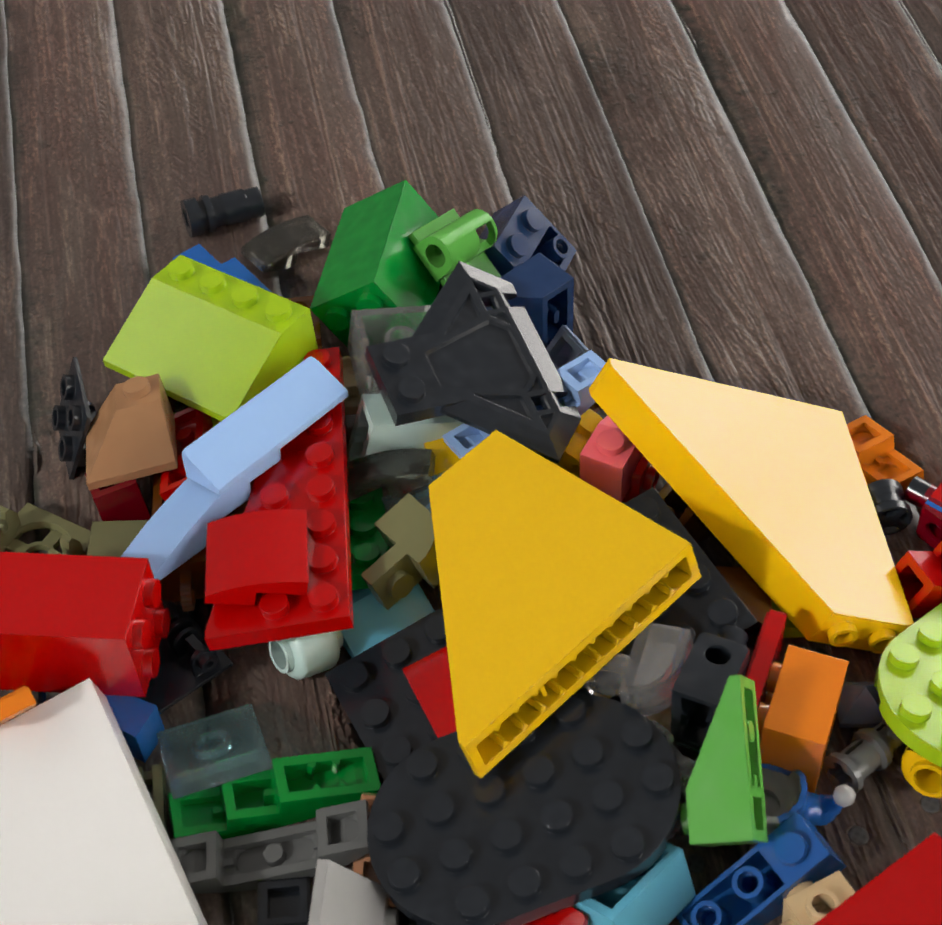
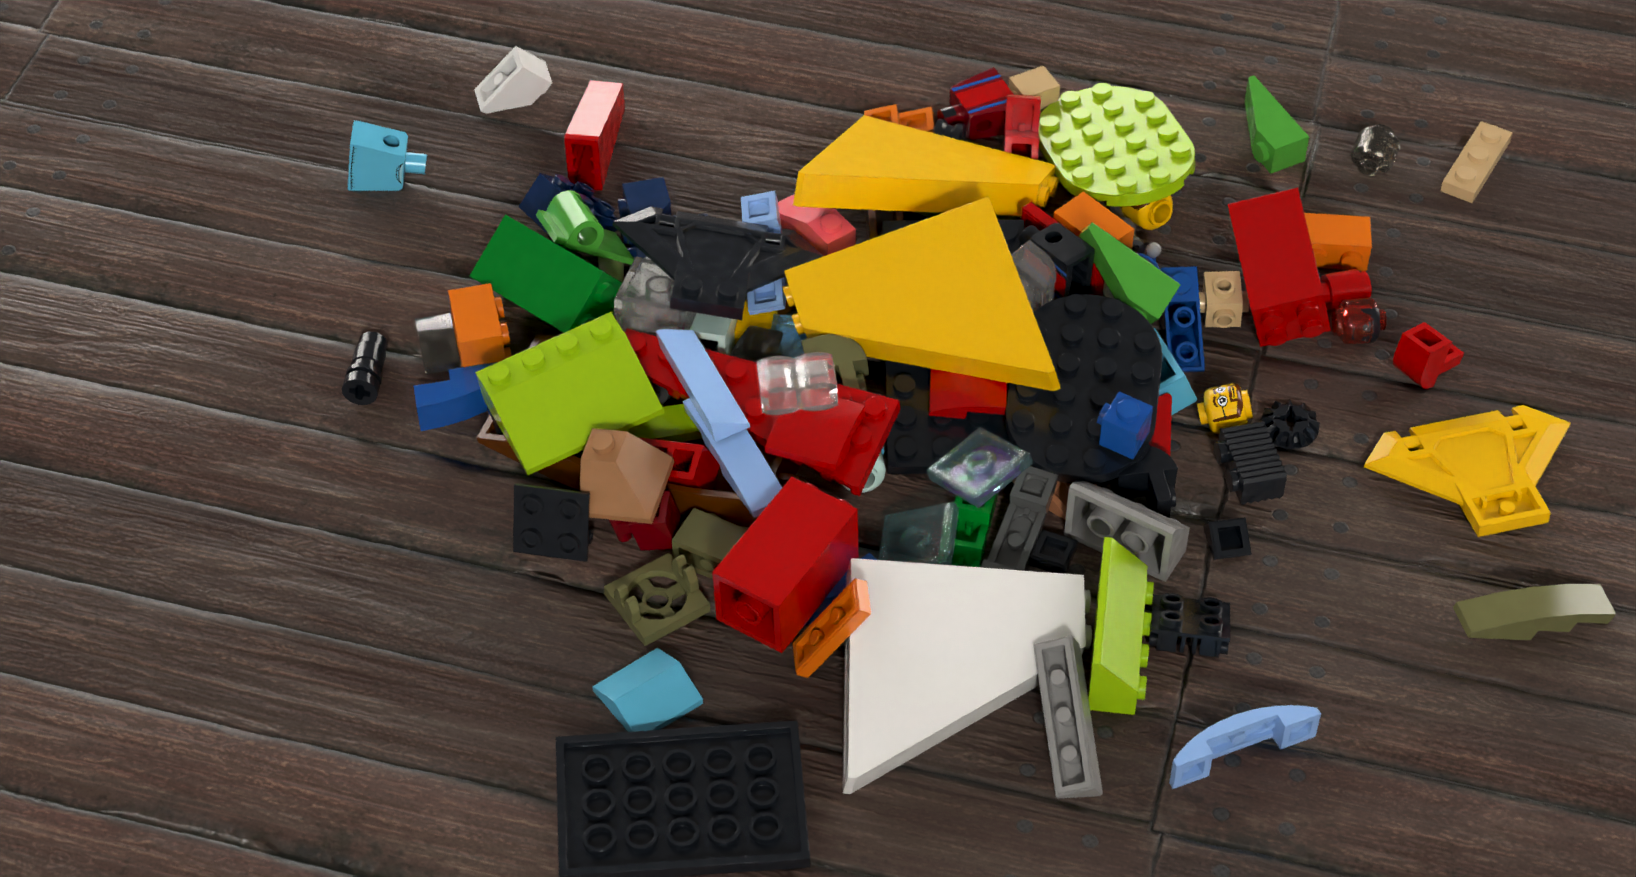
camera: 65 degrees left, 0 degrees up
(289, 249) = (477, 325): none -> orange brick
(289, 500) = (797, 383): none -> clear brick
(342, 758) = (979, 467): none -> clear light blue tile
(446, 876) = (1124, 424): none -> blue brick
(483, 93) = (380, 158): none -> medium azure torso
(639, 216) = (594, 133): none -> red slope
(669, 138) = (513, 82): none -> white slope

